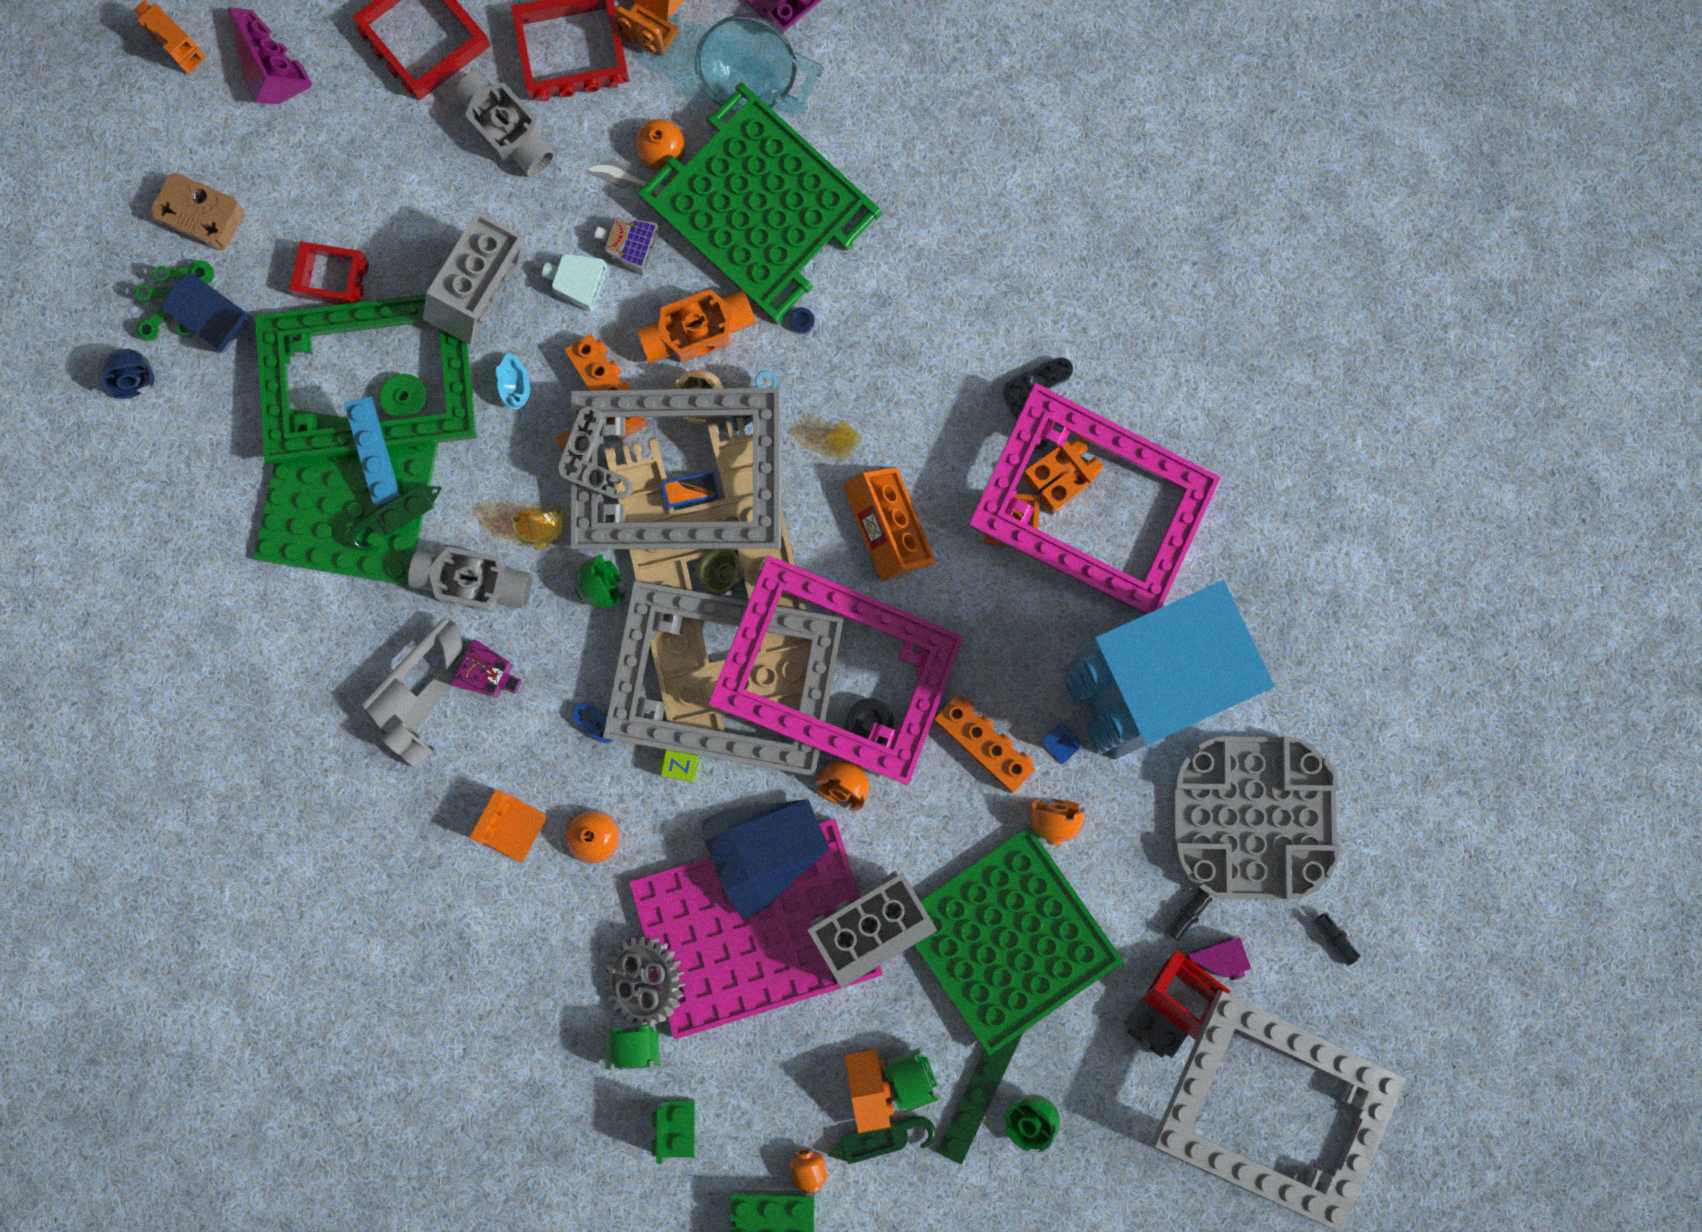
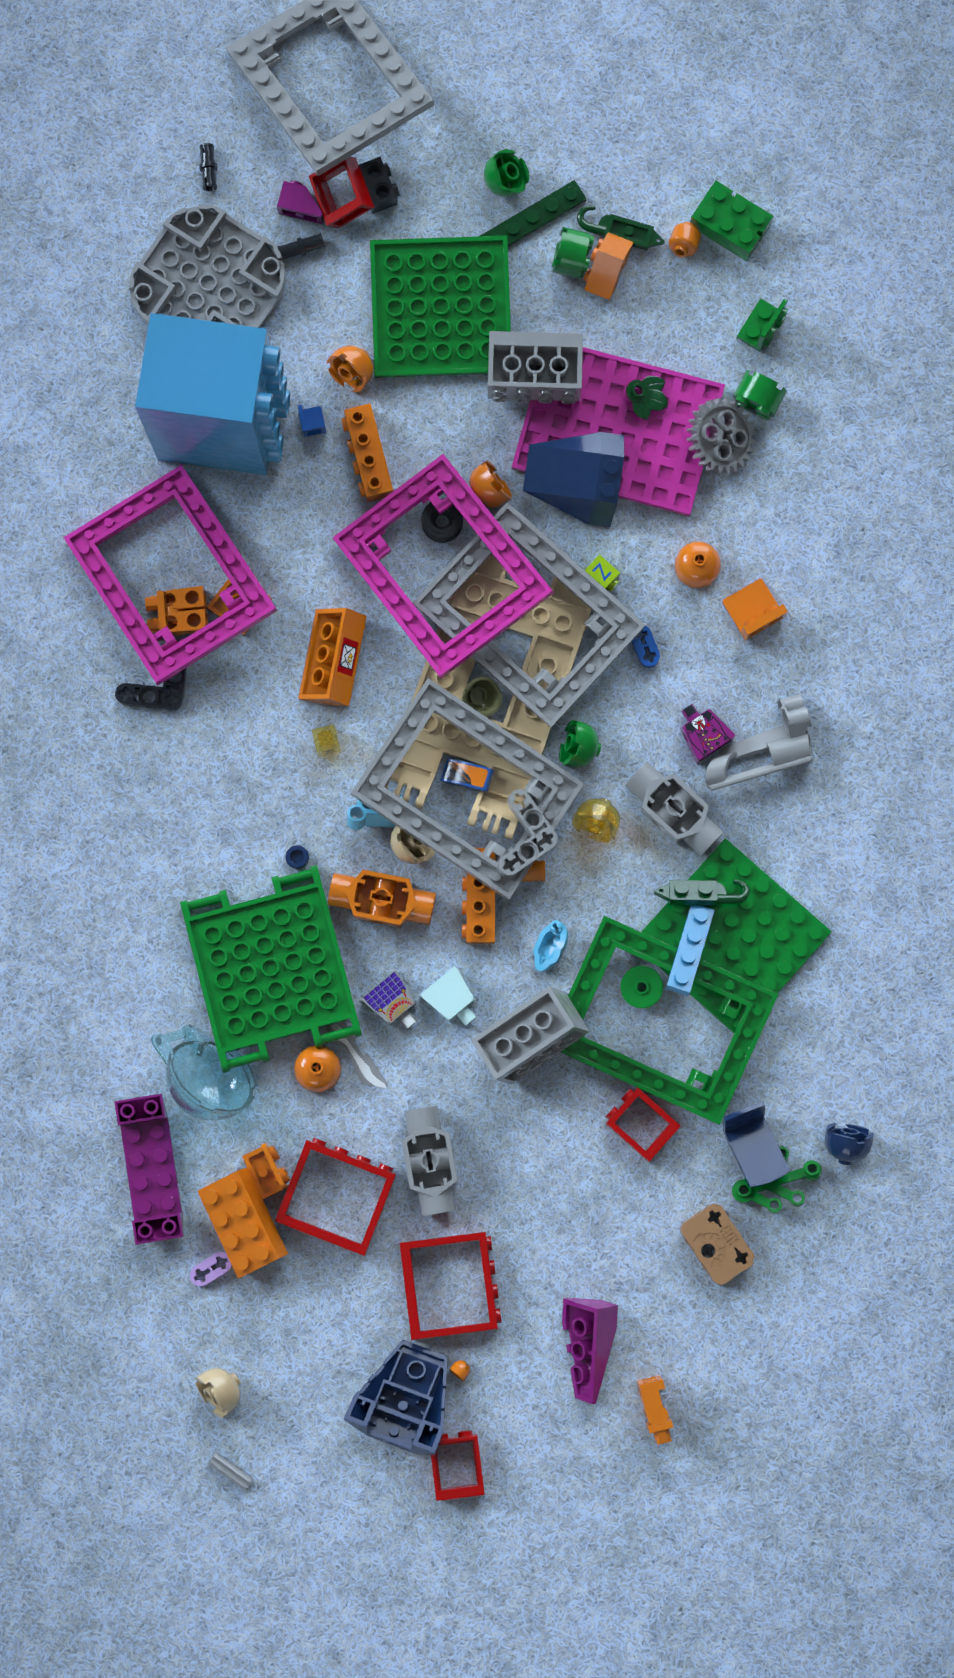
camera: 150 degrees left, 0 degrees up
(740, 976) = (650, 397): none -> dark green plate

